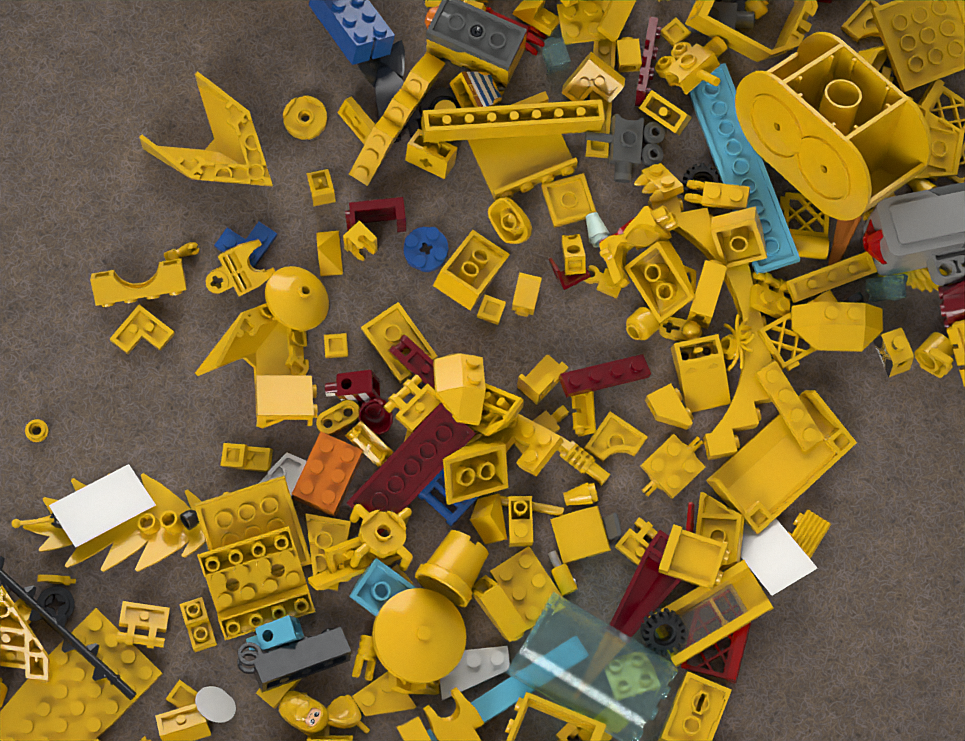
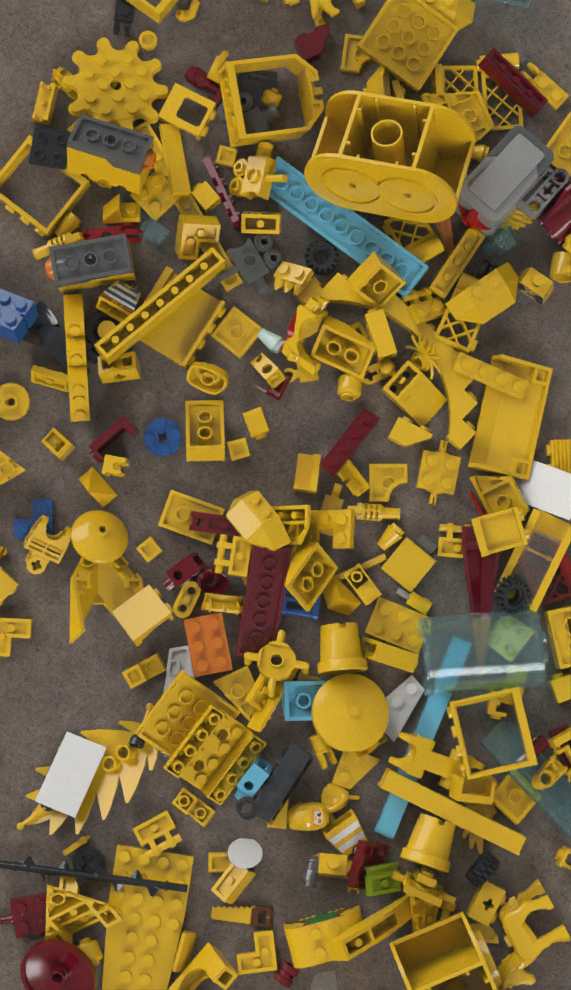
camera: 25 degrees left, 10 degrees up
(719, 195) = (341, 258): yellow hinge -> none

